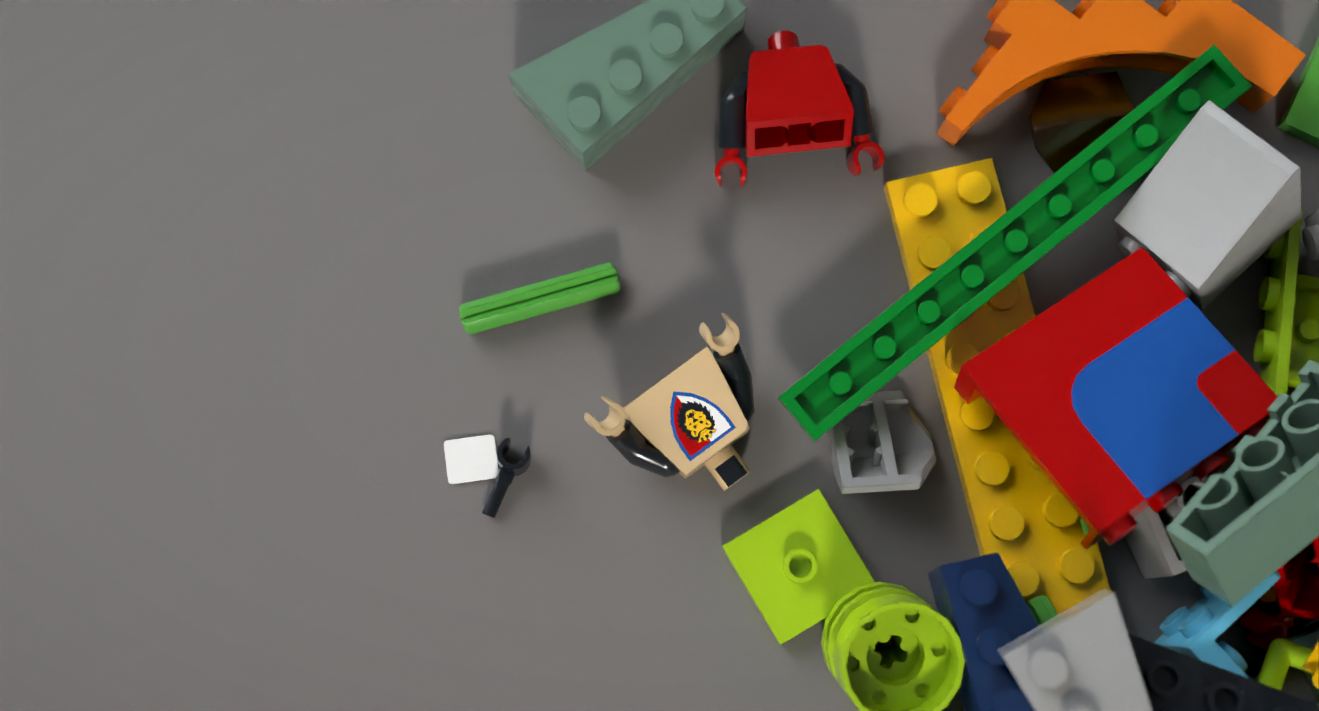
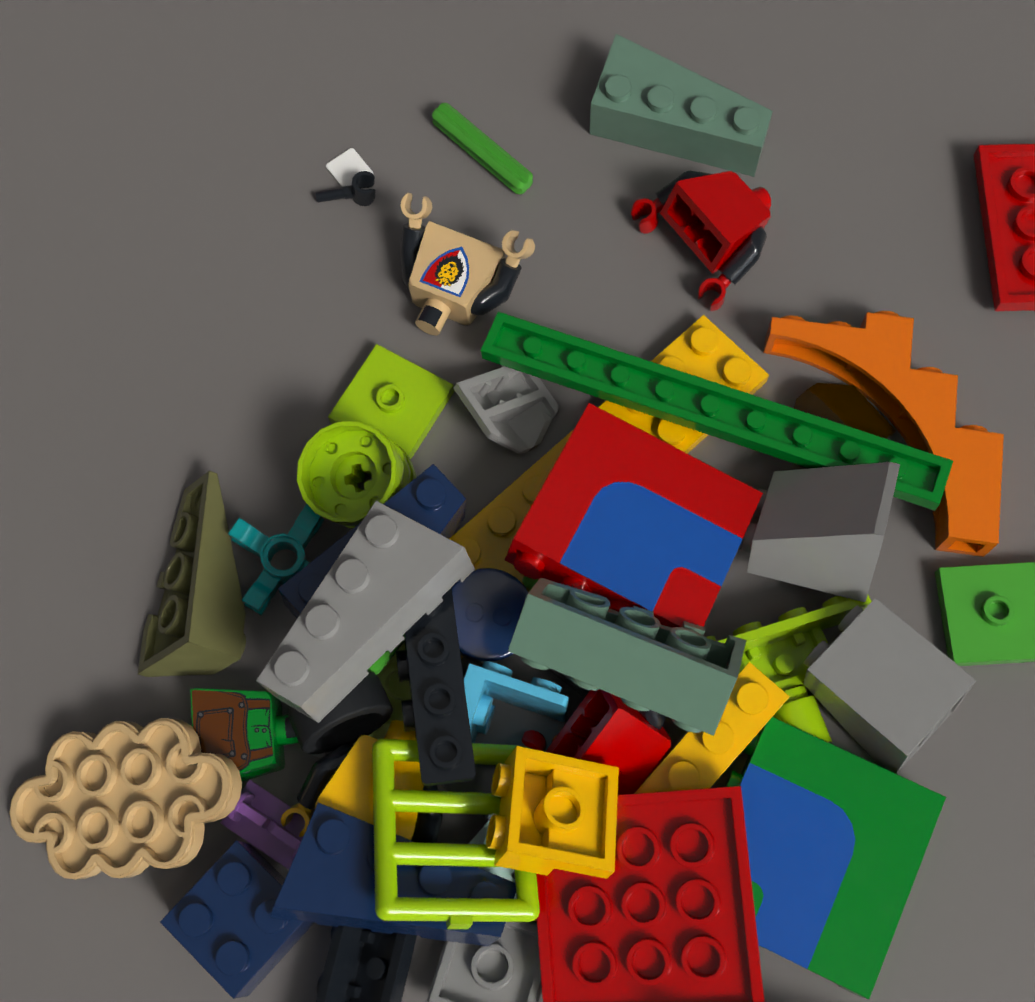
camera: 65 degrees right, 10 degrees down
(1135, 577) = (487, 613): none -> dark blue head

